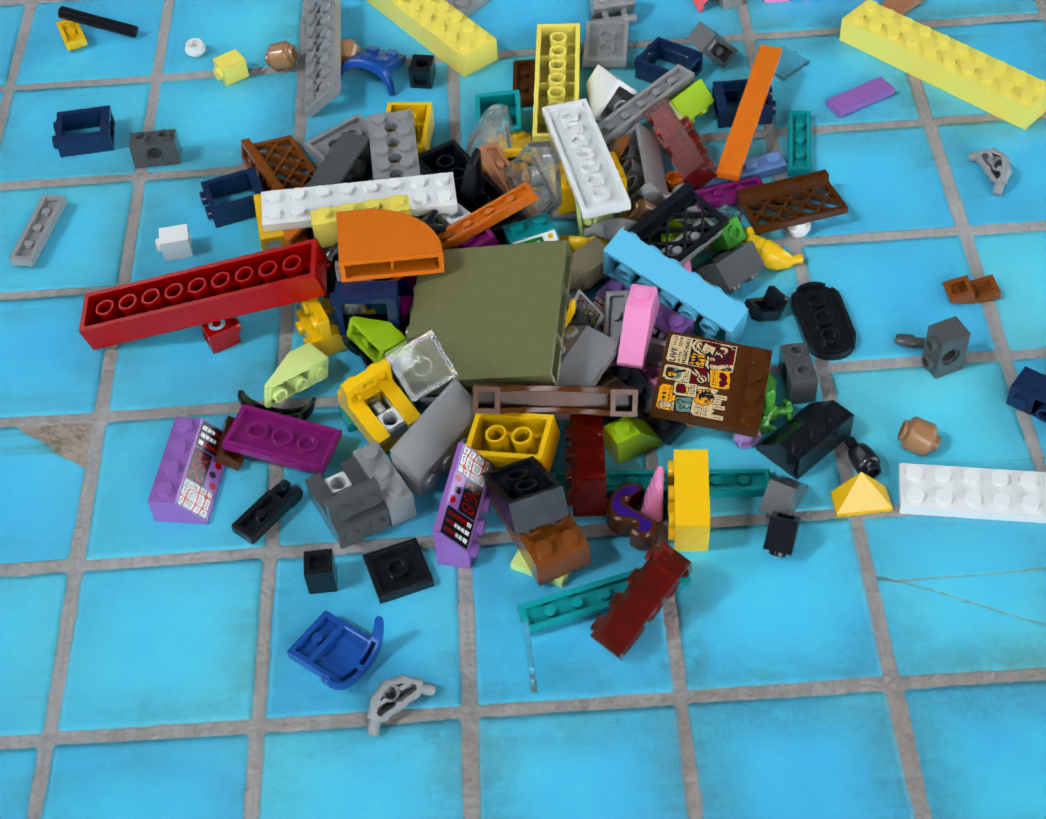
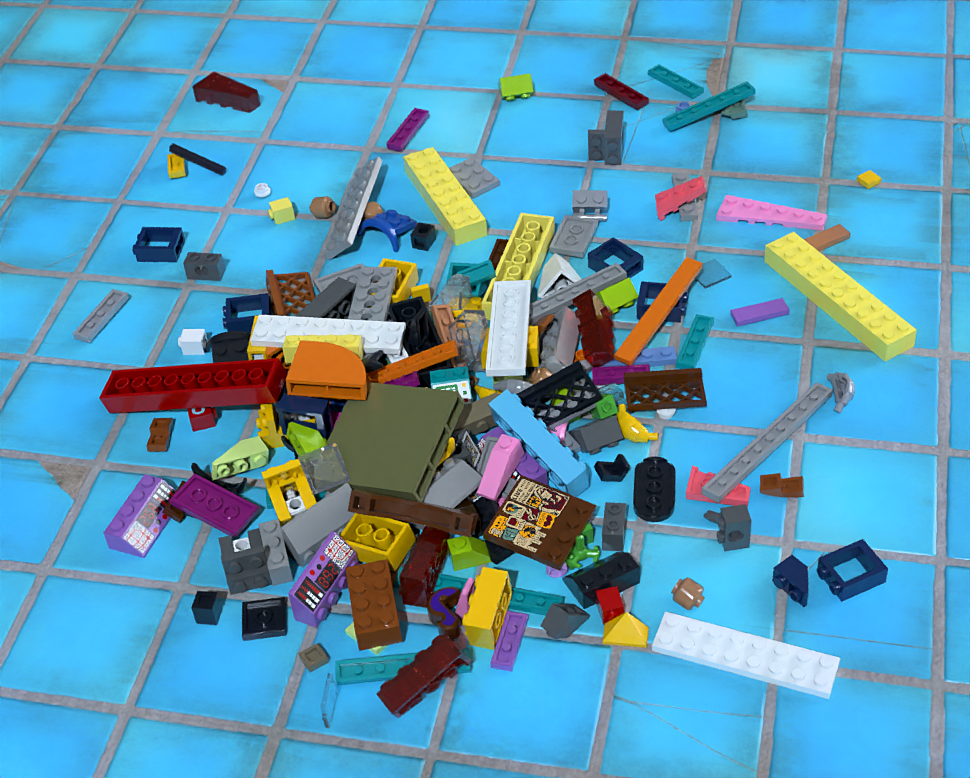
camera: 15 degrees right, 5 degrees down
(172, 364) = (160, 434): none -> dark orange slope
(227, 239) = (229, 346): none -> black piece
(266, 511) = (187, 556): black hinge -> none
(337, 650) = (198, 668): blue piece -> none
(392, 697) = (223, 709): light grey piece -> none
(445, 135) = (421, 290): none -> yellow tile
(482, 606) = (313, 657): none -> dark tan tile
(517, 100) = (479, 273): none -> teal tile
(526, 495) = (363, 580): black slope -> none
(712, 44) = (653, 250): dark grey brick -> none
(723, 537) = (509, 641): none -> medium lavender tile
(781, 534) = (550, 647): black brick -> none
(830, 467) = (609, 604): none -> red brick
(863, 458) = (638, 603): black plant -> none
(889, 308) = (697, 479): none -> coral wing
(936, 244) = (766, 442): none -> light grey plate

